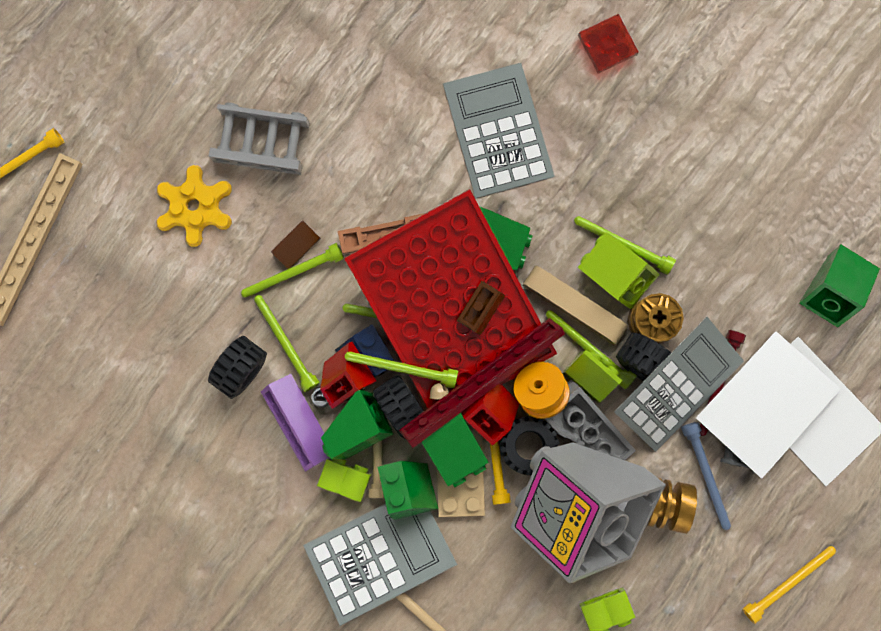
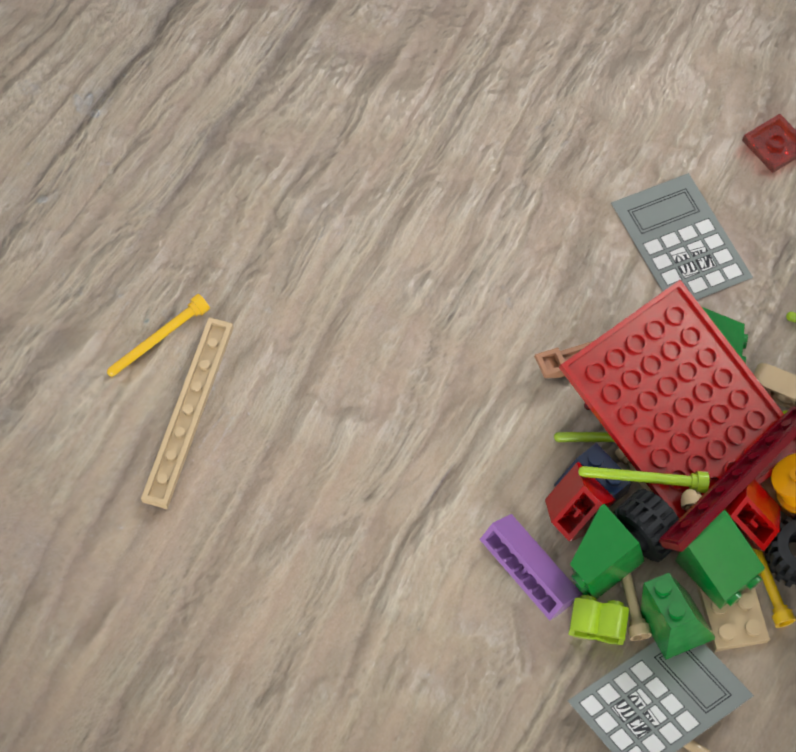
camera: 10 degrees left, 20 degrees down
(205, 215) = (366, 370): yellow plate -> none
(237, 367) = (454, 507): black tyre -> none
(245, 156) = (427, 299): light grey fence -> none
(295, 245) = (487, 379): reddish brown slope -> none
(307, 380) = (532, 519): lime piece -> none
(318, 394) = (551, 536): dark grey hinge -> none
(331, 254) = (532, 382): lime piece -> none
(481, 307) = (717, 402): reddish brown slope -> none

